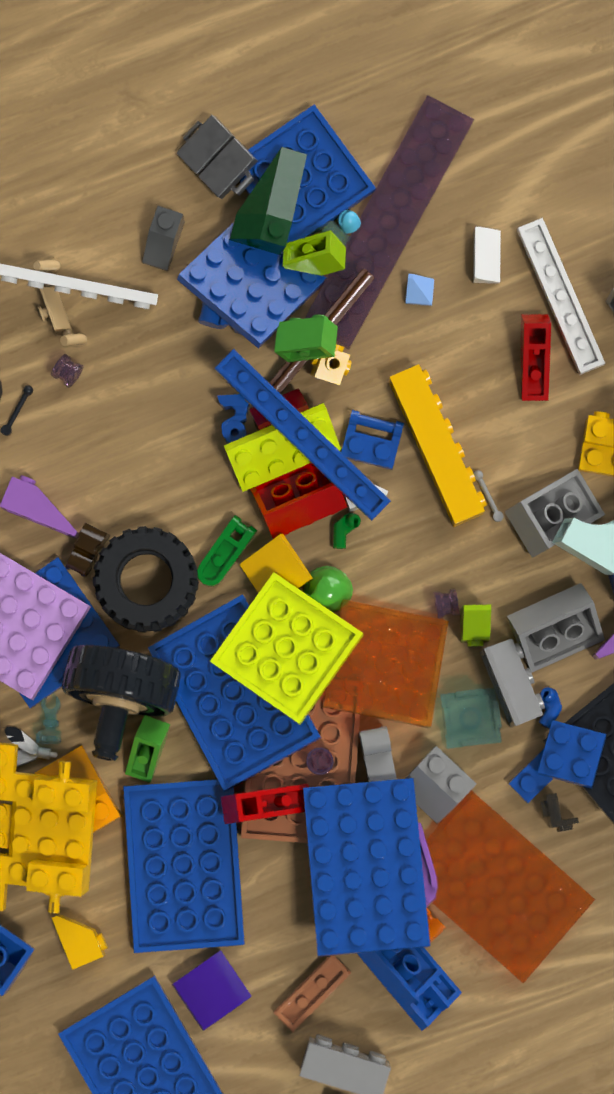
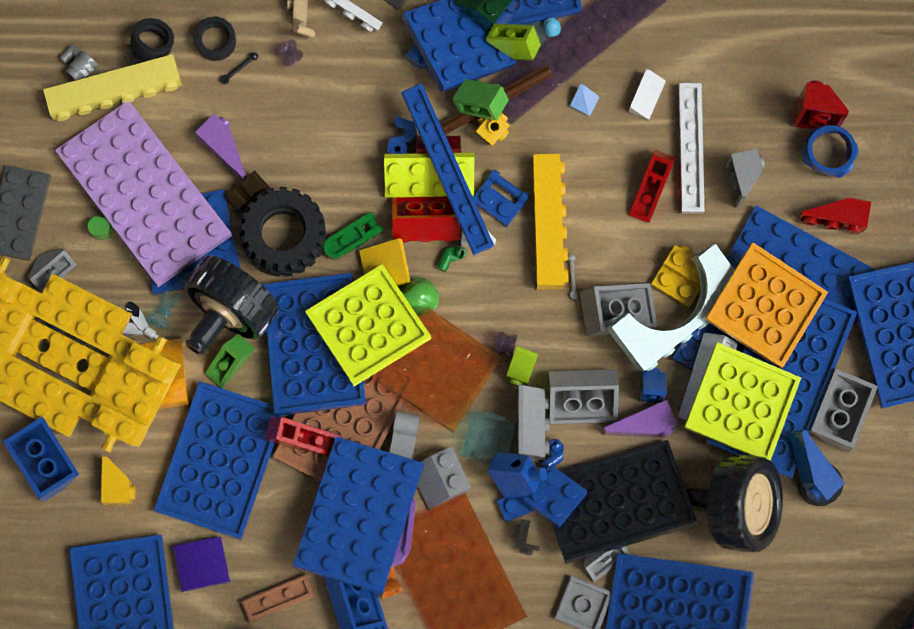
camera: 15 degrees right, 5 degrees down
(317, 758) = (355, 418): clear purple wheel -> none
(520, 749) = (515, 474): none -> blue torso

